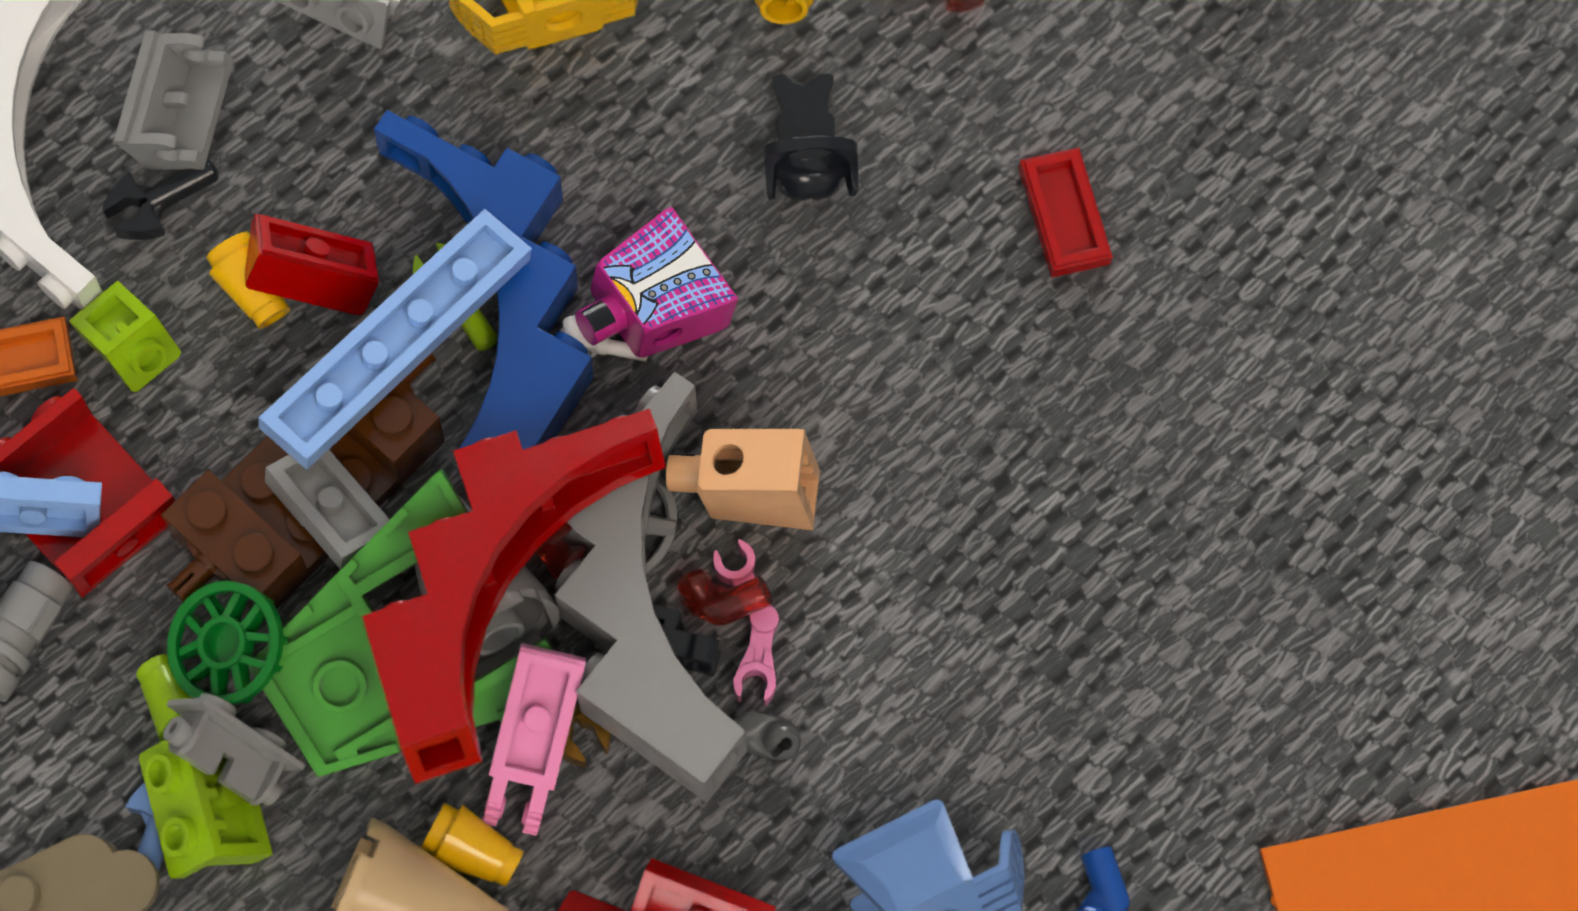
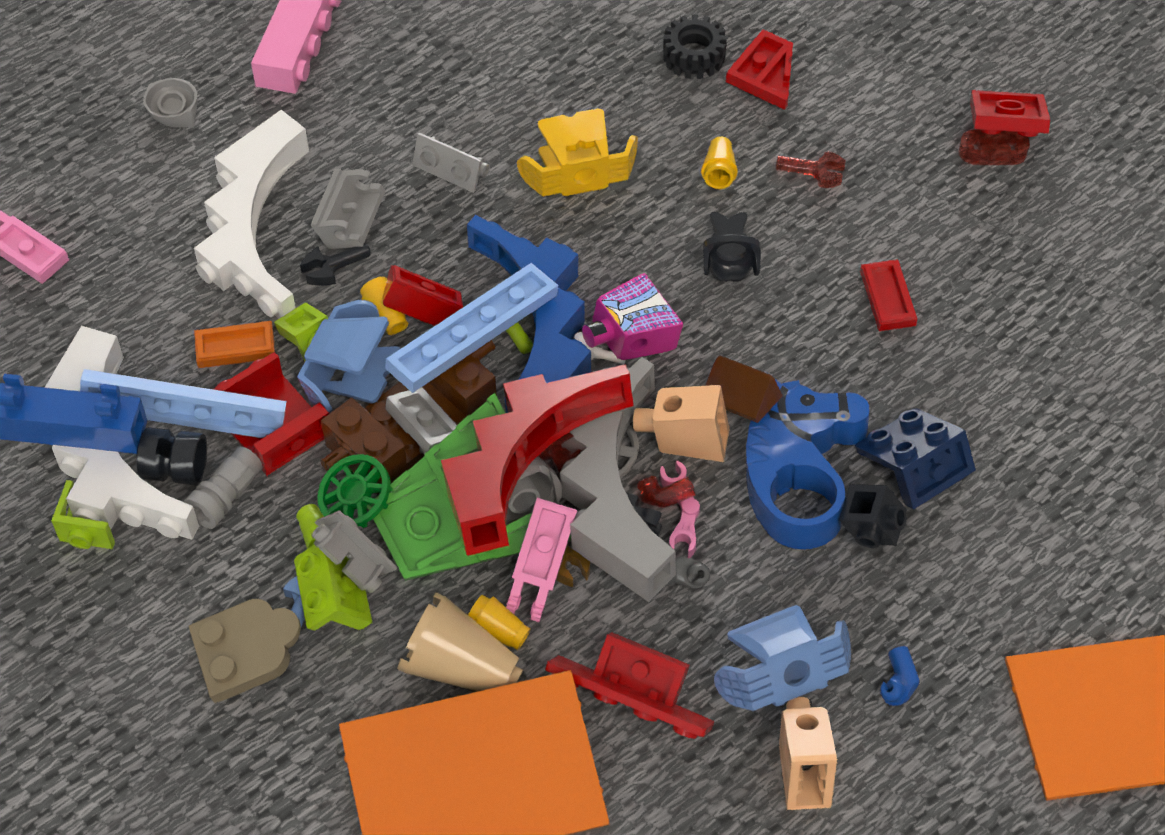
camera: 10 degrees right, 15 degrees down
(201, 379) = (348, 344): none -> medium blue piece
(835, 412) = (744, 388): none -> reddish brown slope
(906, 484) = (787, 453): none -> blue animal
(1052, 627) = (873, 515): none -> black brick
(1119, 503) = (922, 453): none -> dark blue bracket

